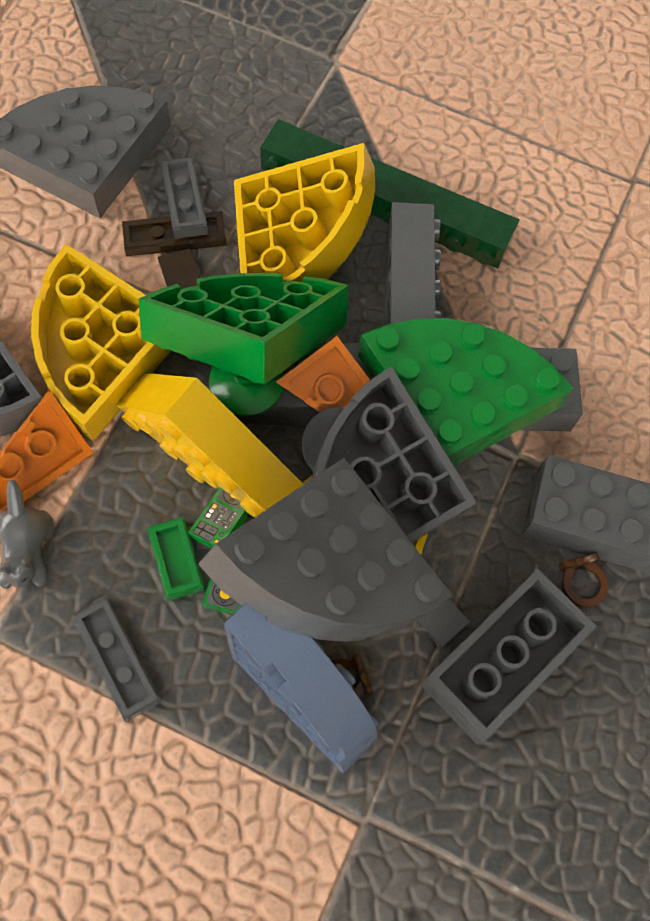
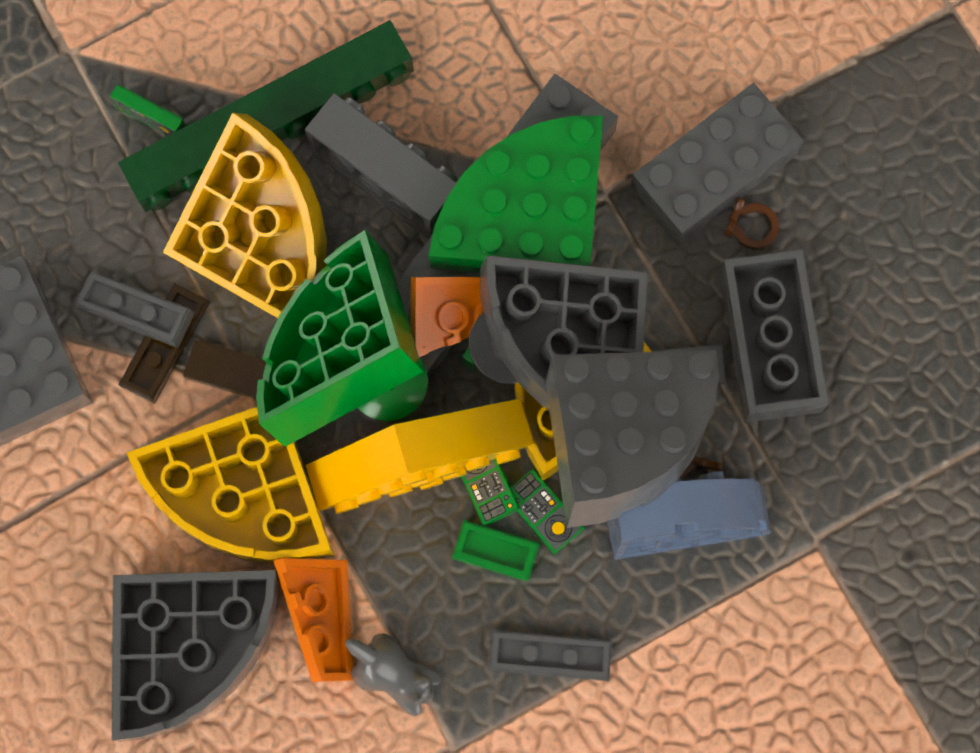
camera: 45 degrees left, 10 degrees up
(329, 115) = (146, 111): none -> green tile

